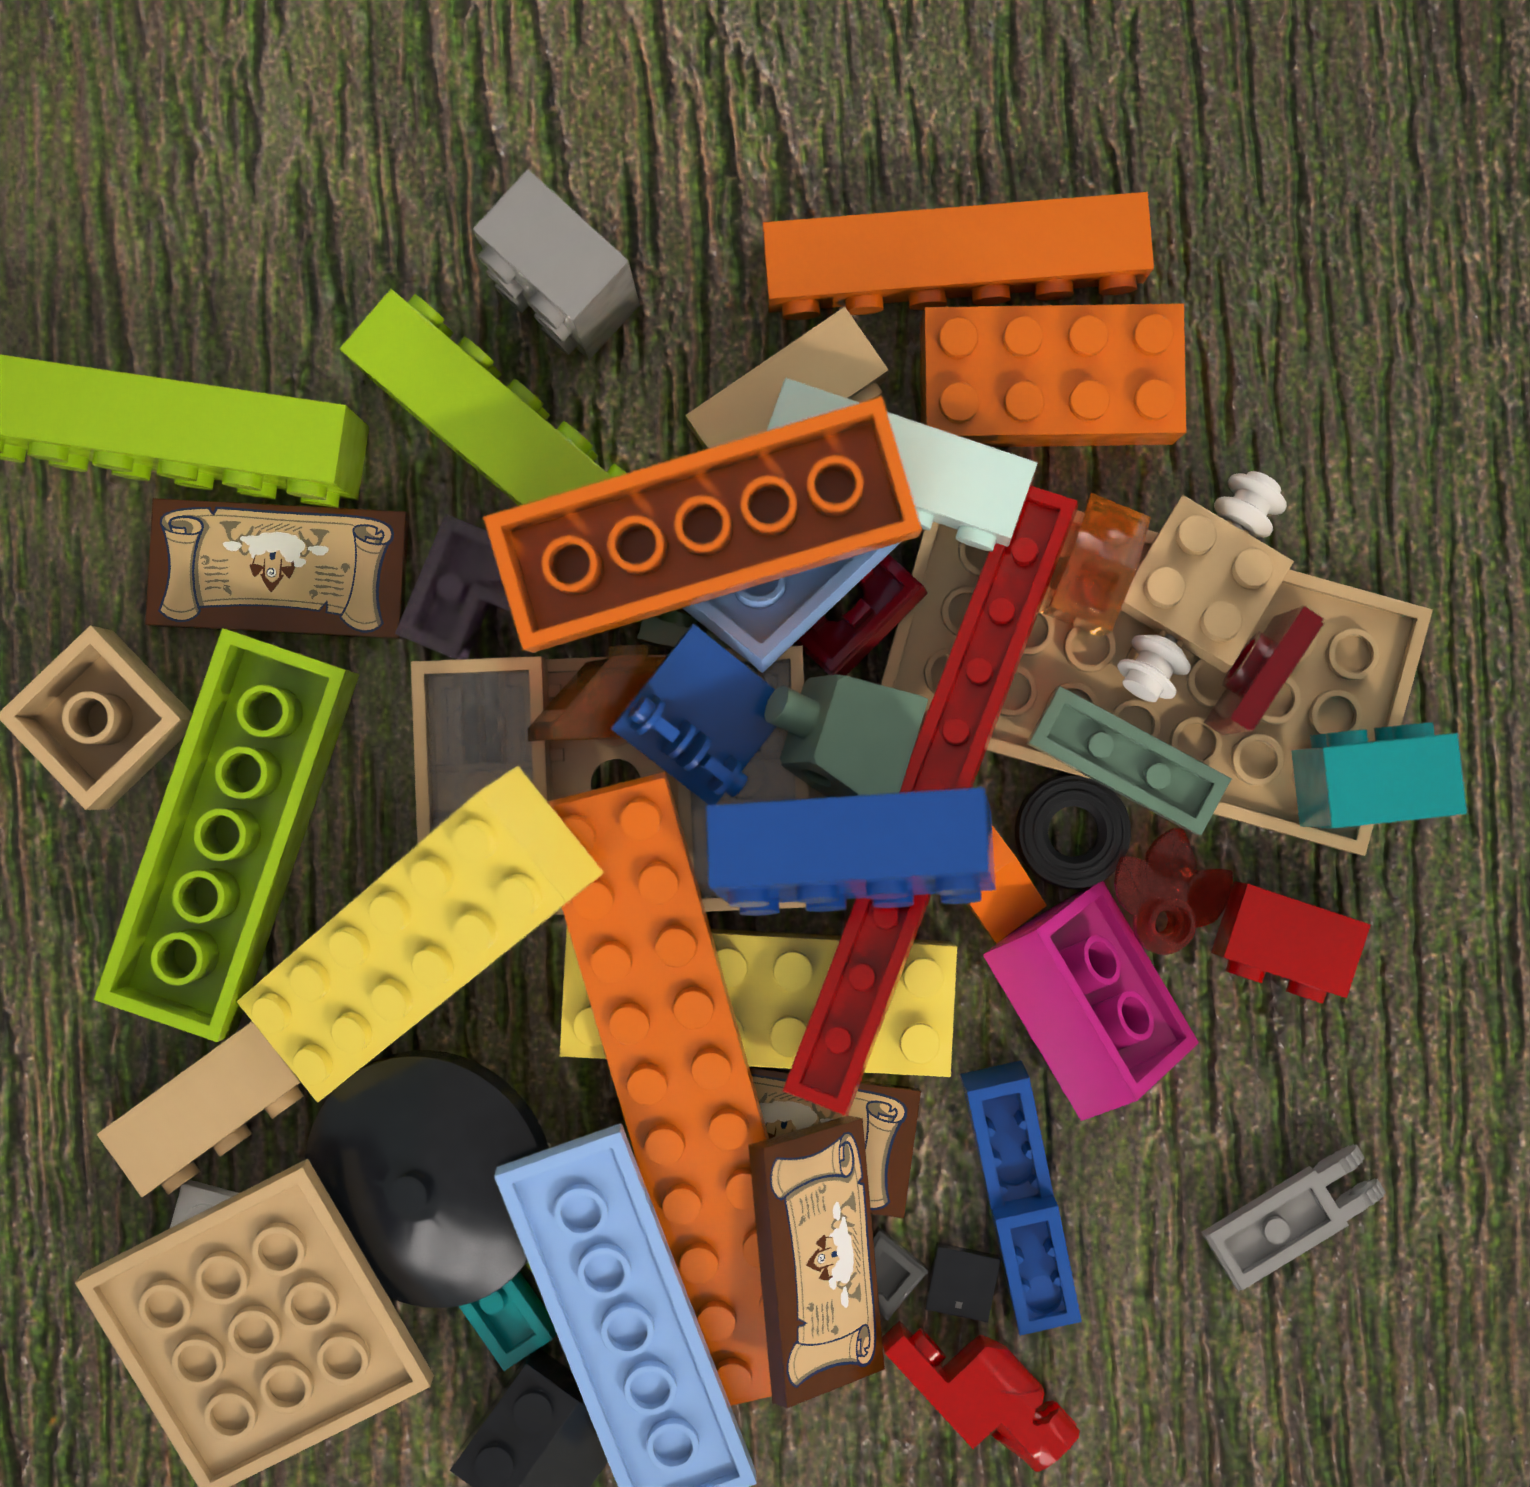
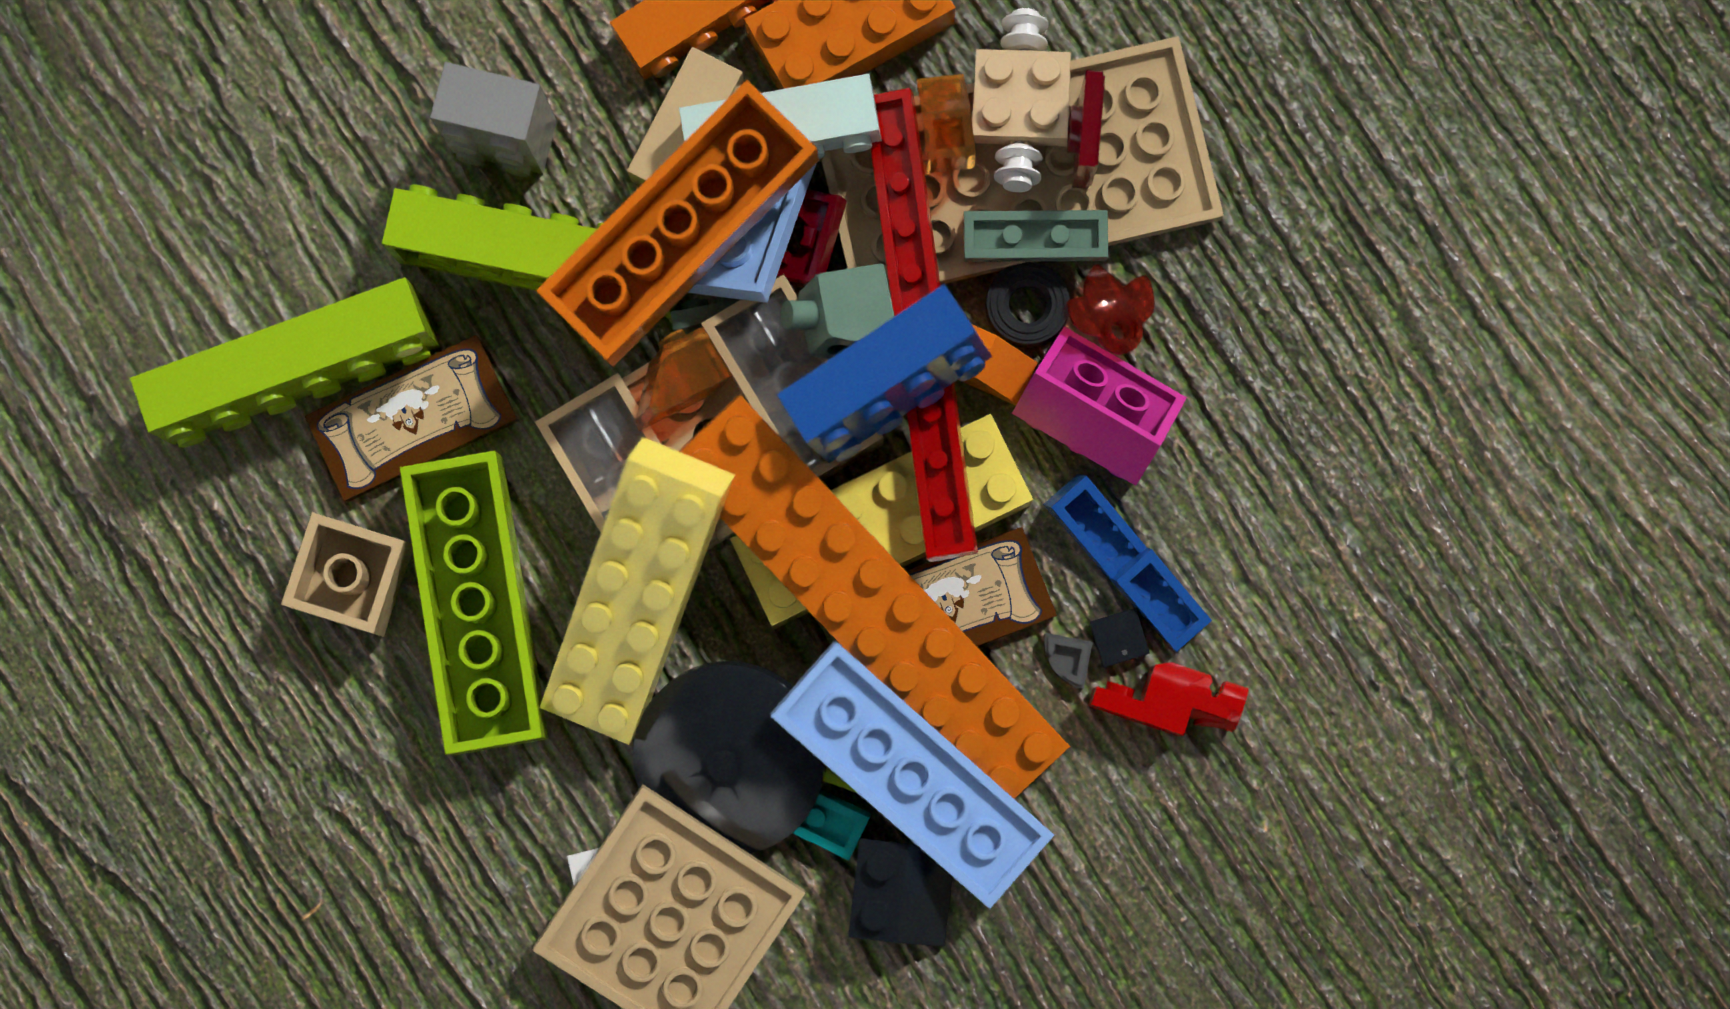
camera: 30 degrees left, 5 degrees down
(201, 1111) = (556, 794): tan brick -> none
(454, 590) = (538, 352): brick -> none
(700, 717) = (742, 351): blue hinge -> none
(816, 1259) = (1012, 666): tile -> none
(1289, 1219) = (1307, 479): light grey hinge -> none
(1291, 940) = (1206, 297): red brick -> none
(1391, 779) = (1198, 157): teal brick -> none

